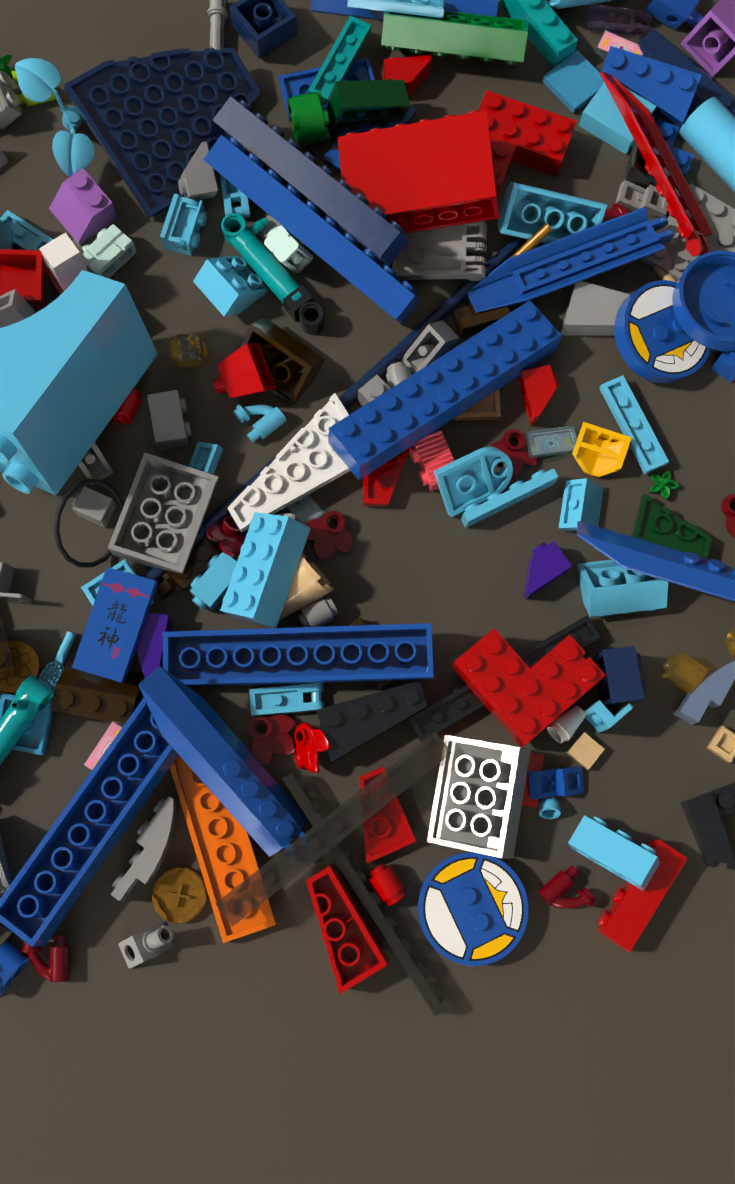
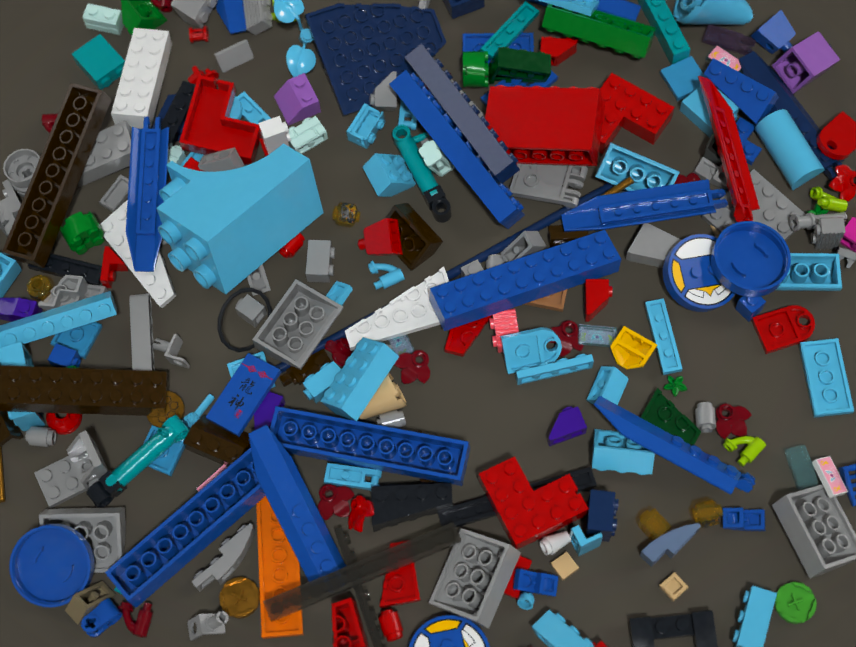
camera: 25 degrees right, 10 degrees down
(712, 517) = (705, 417): none -> light grey brick

